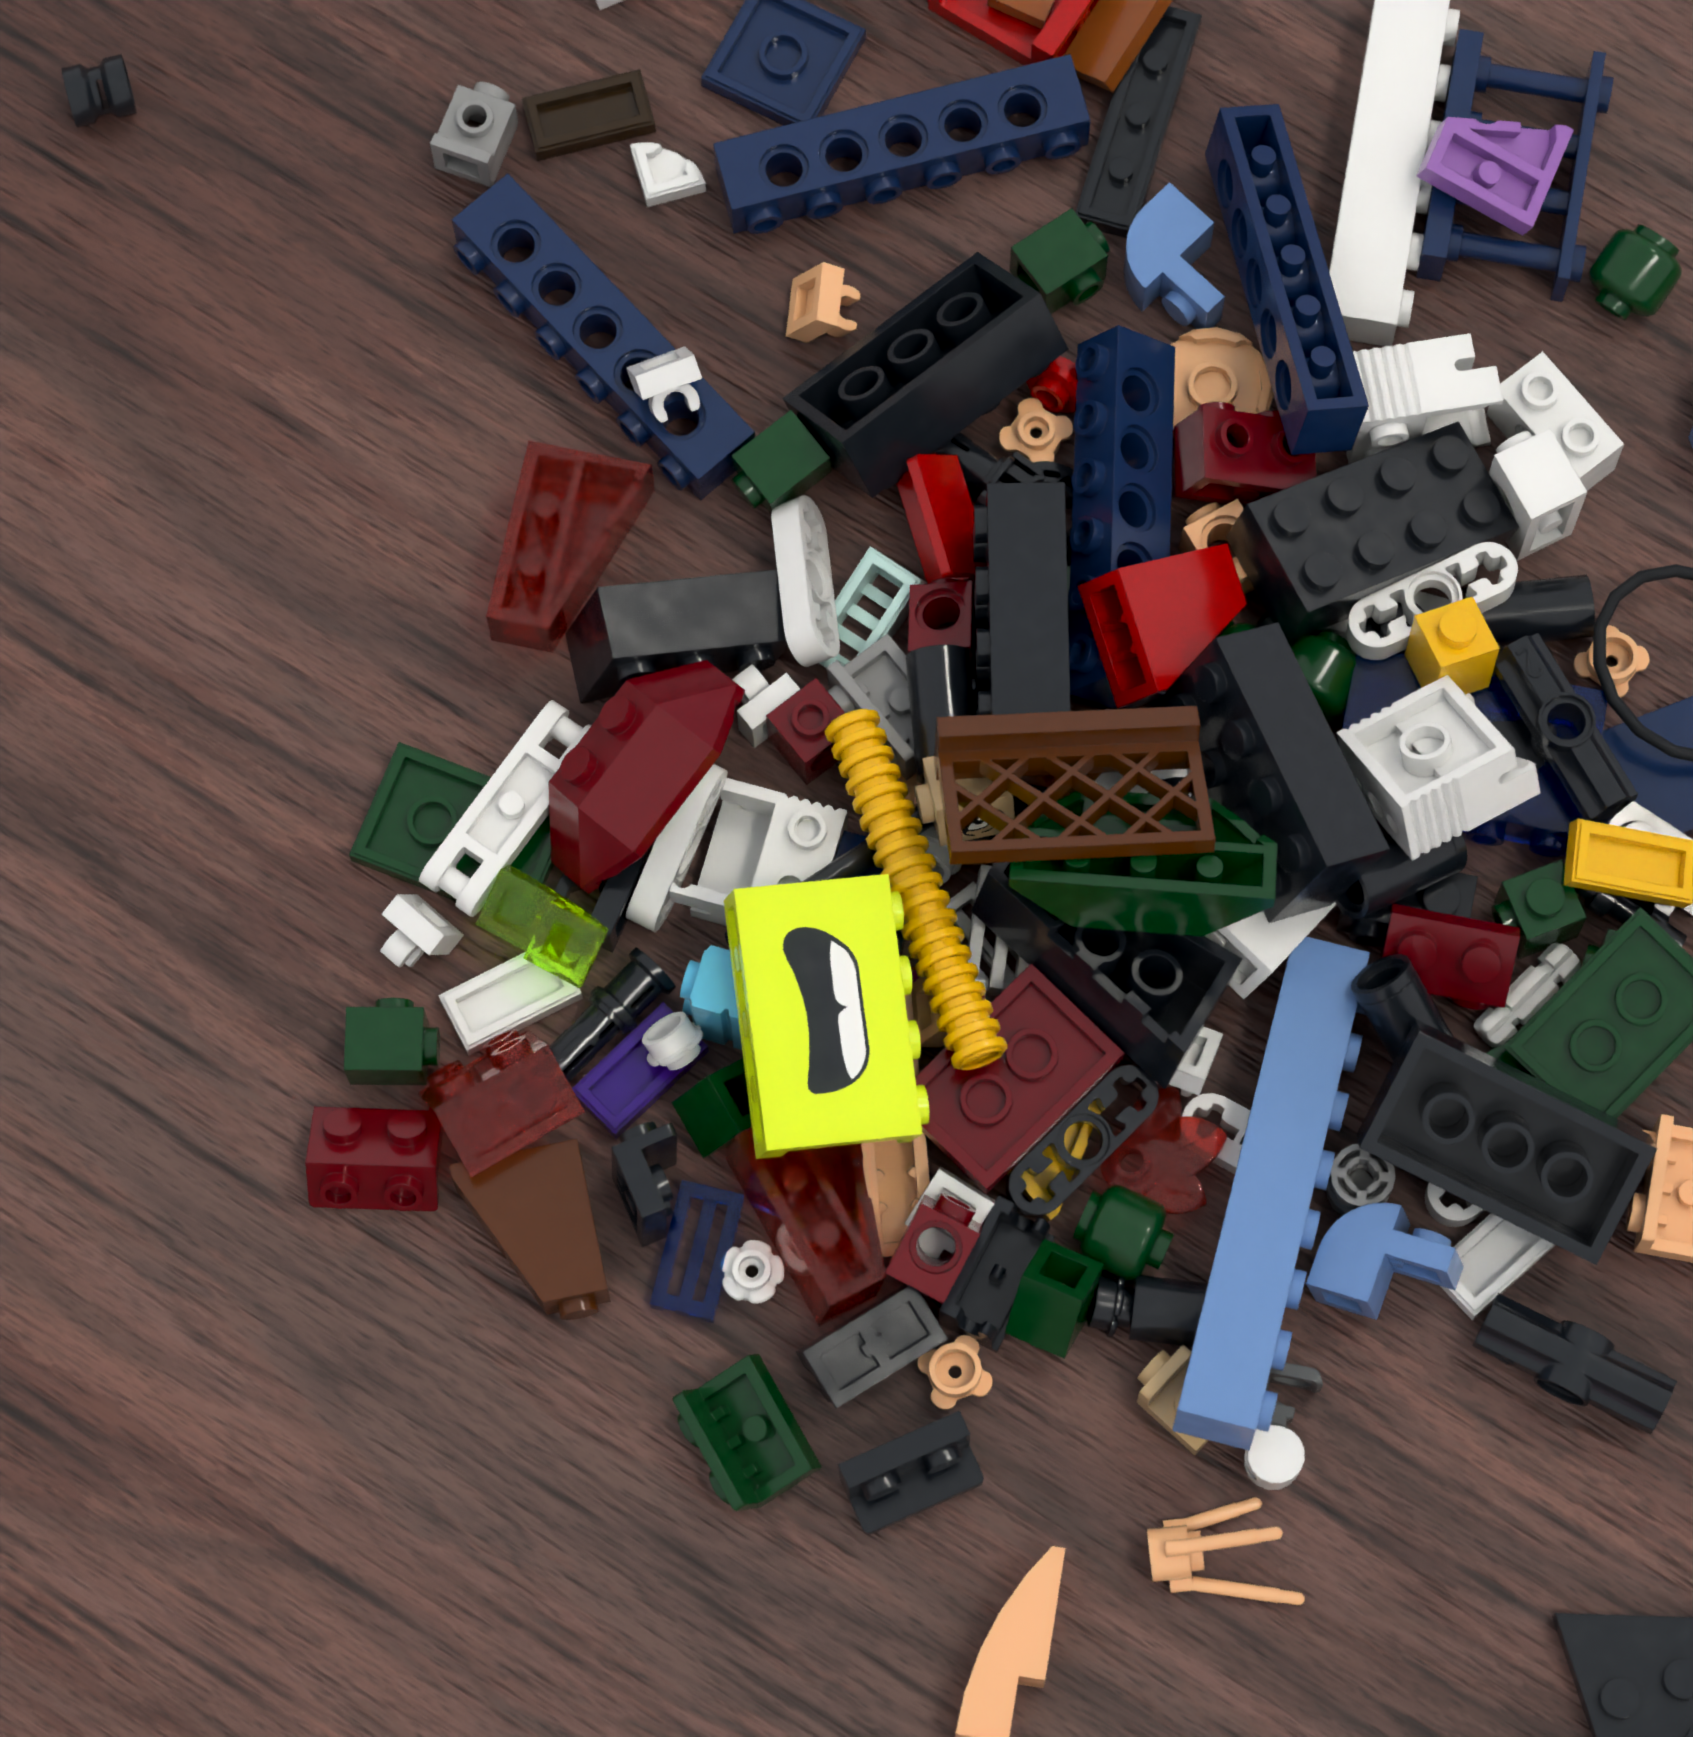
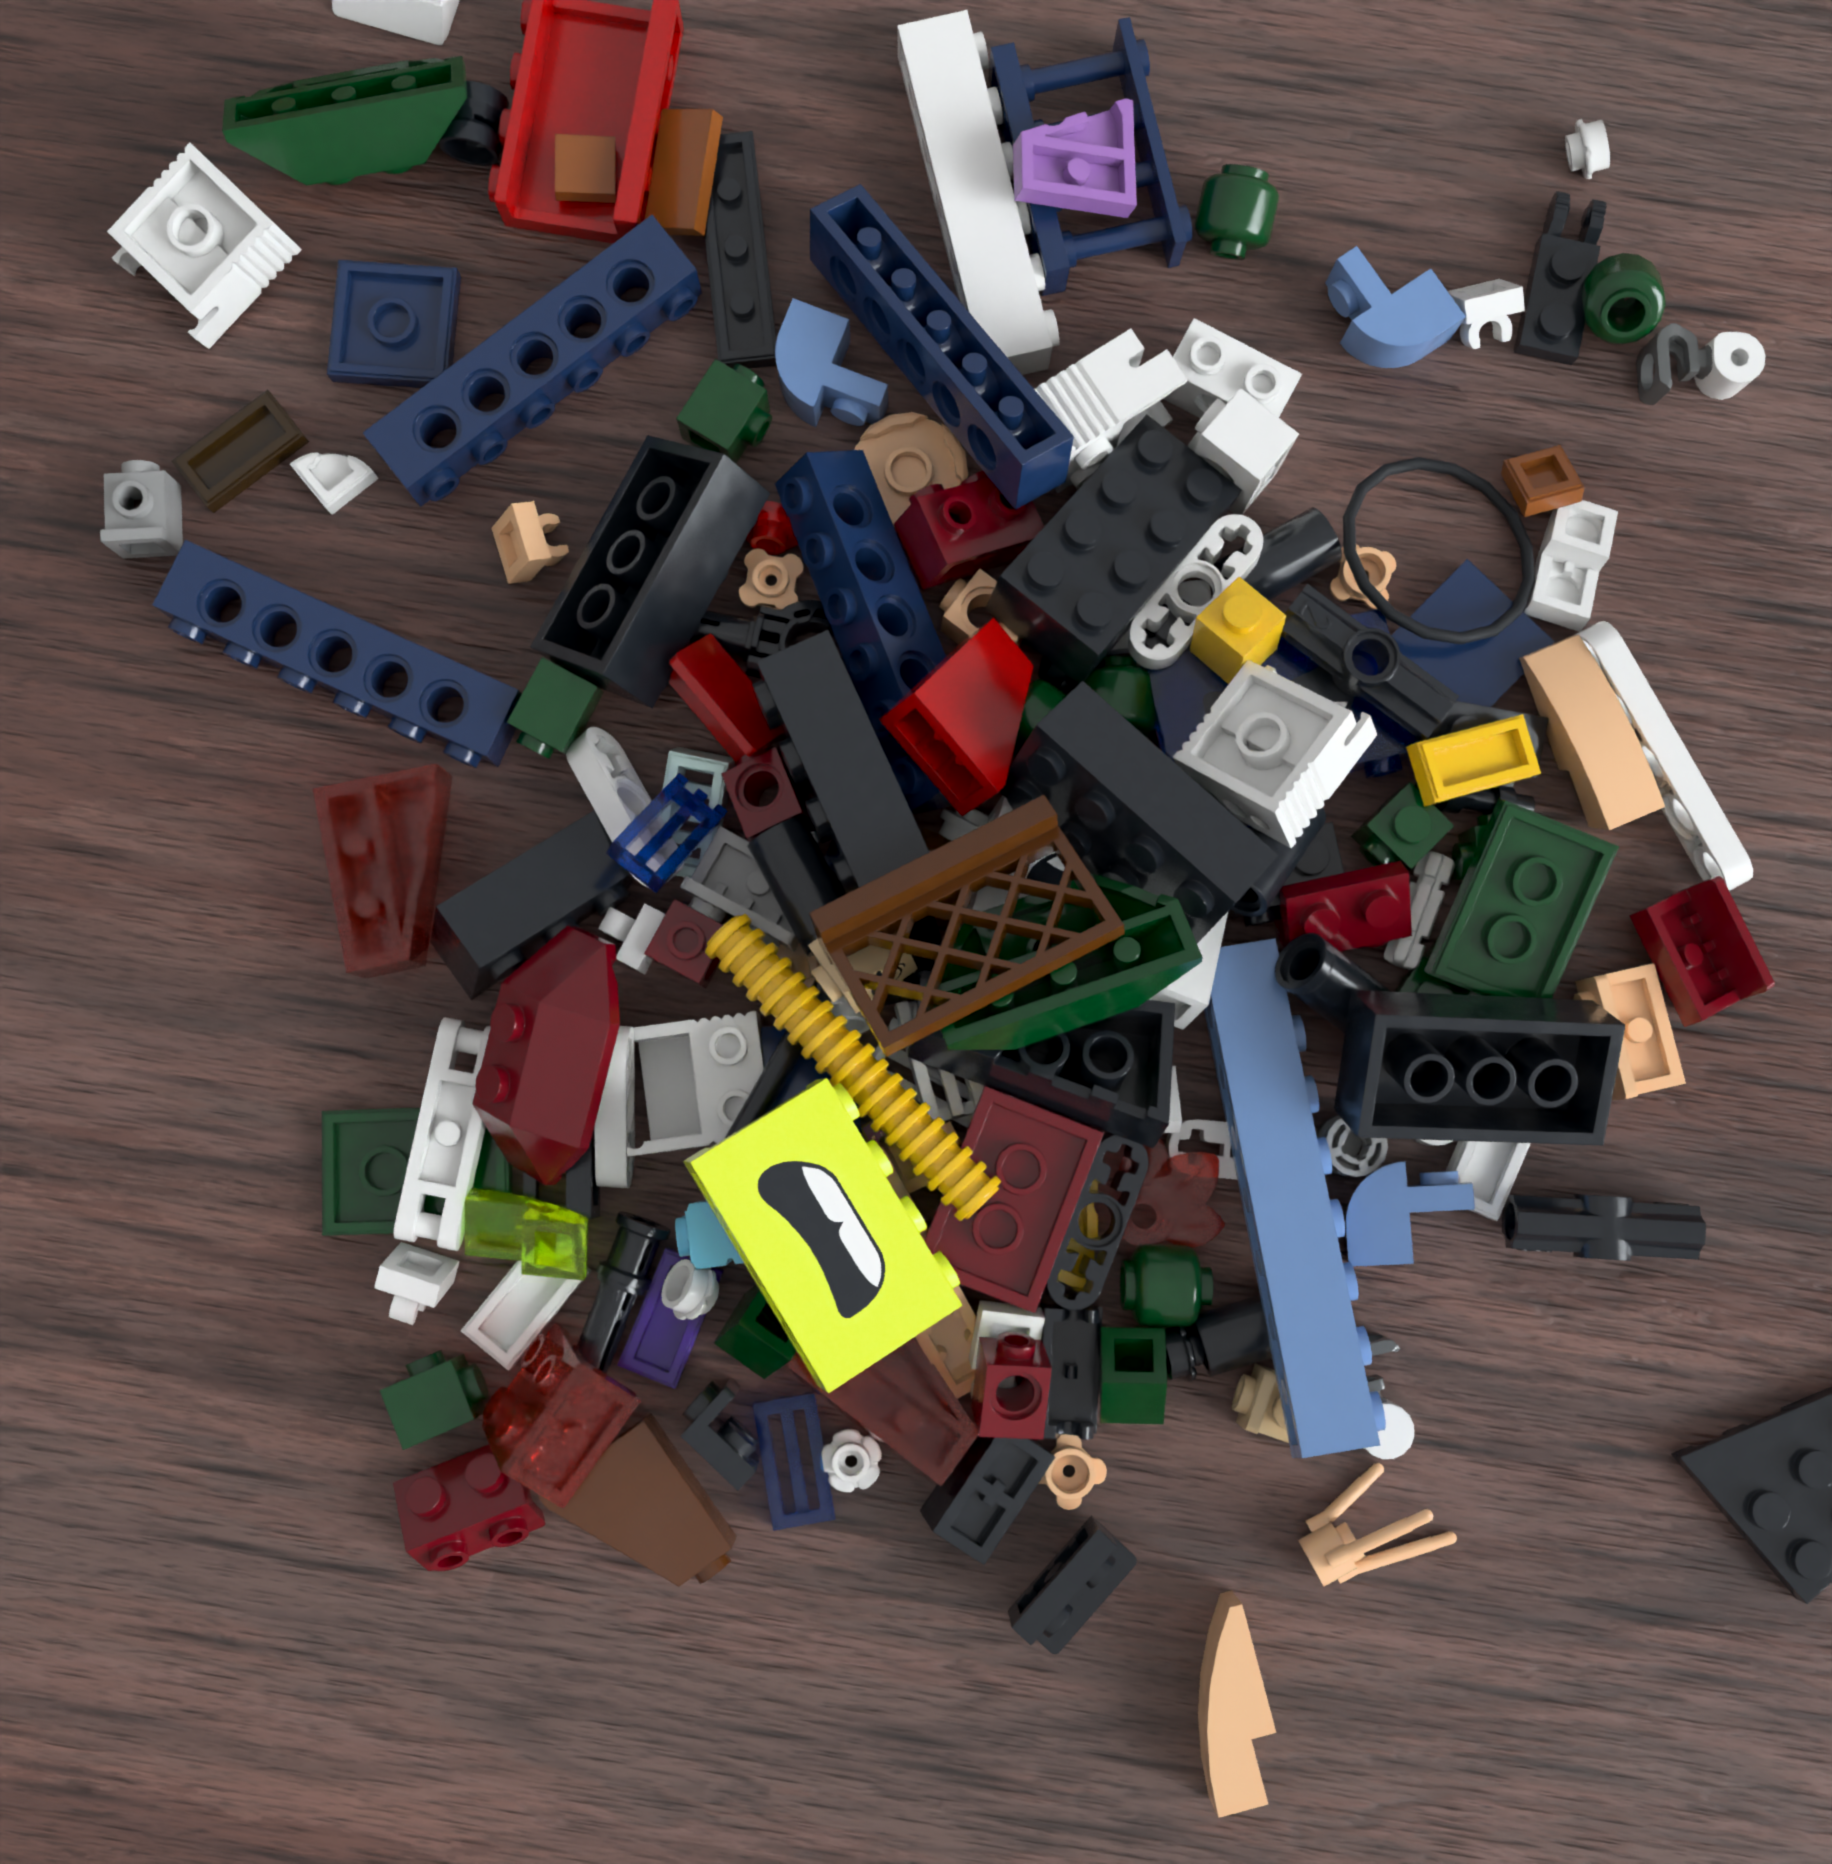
camera: 30 degrees left, 10 degrees up
(664, 375) = (411, 674): white tile -> none
(746, 1435) = (910, 1618): dark green bracket -> none
(865, 601) = (690, 805): none -> clear blue tile

